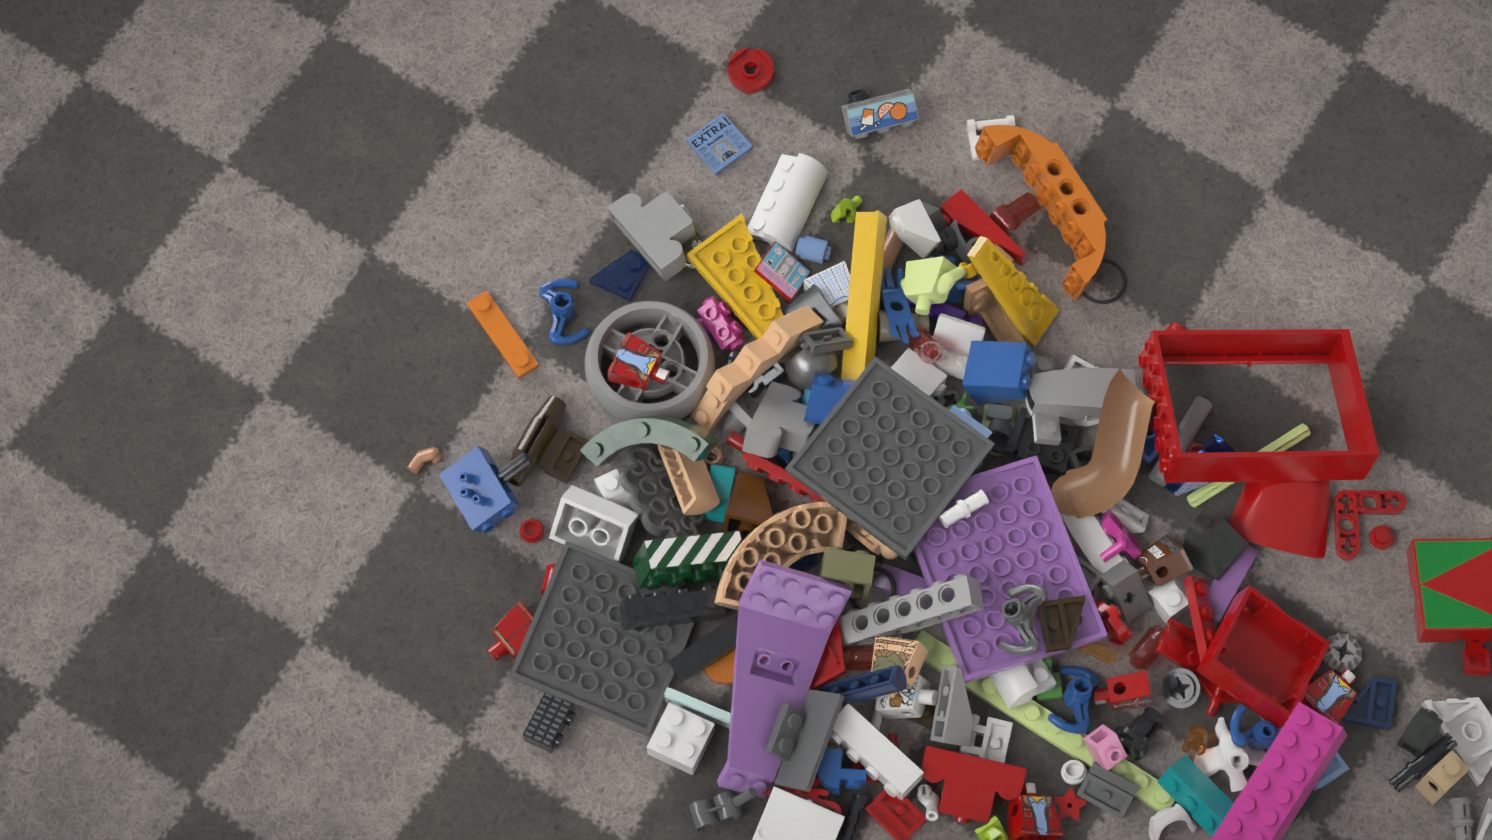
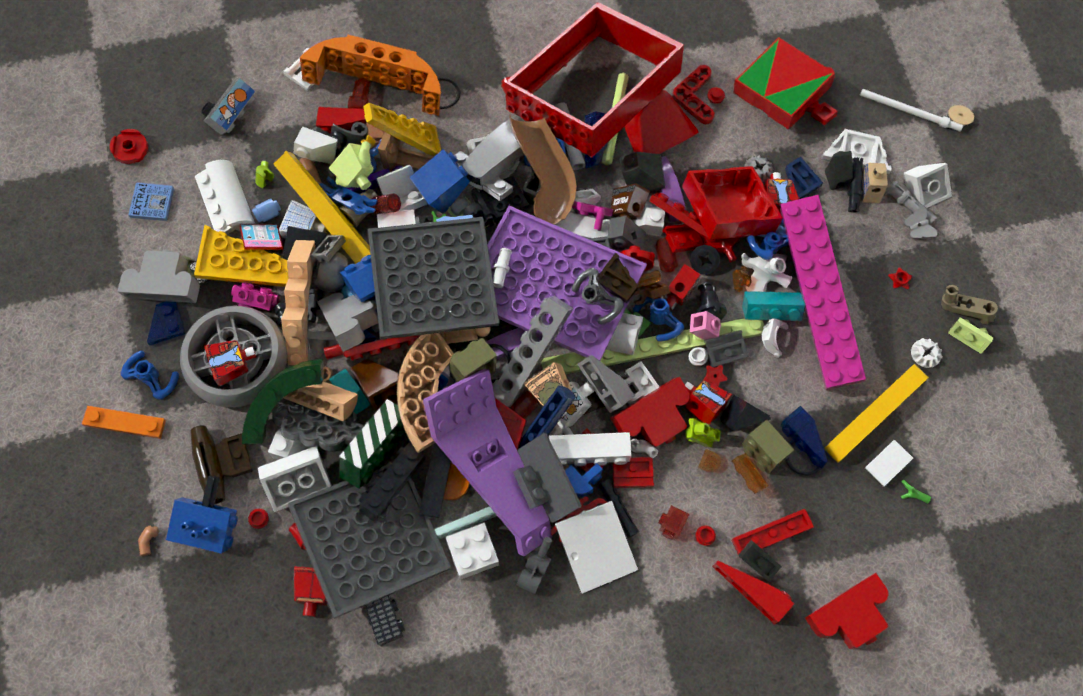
camera: 50 degrees left, 0 degrees up
(1092, 668) = (653, 290): none -> reddish brown plate

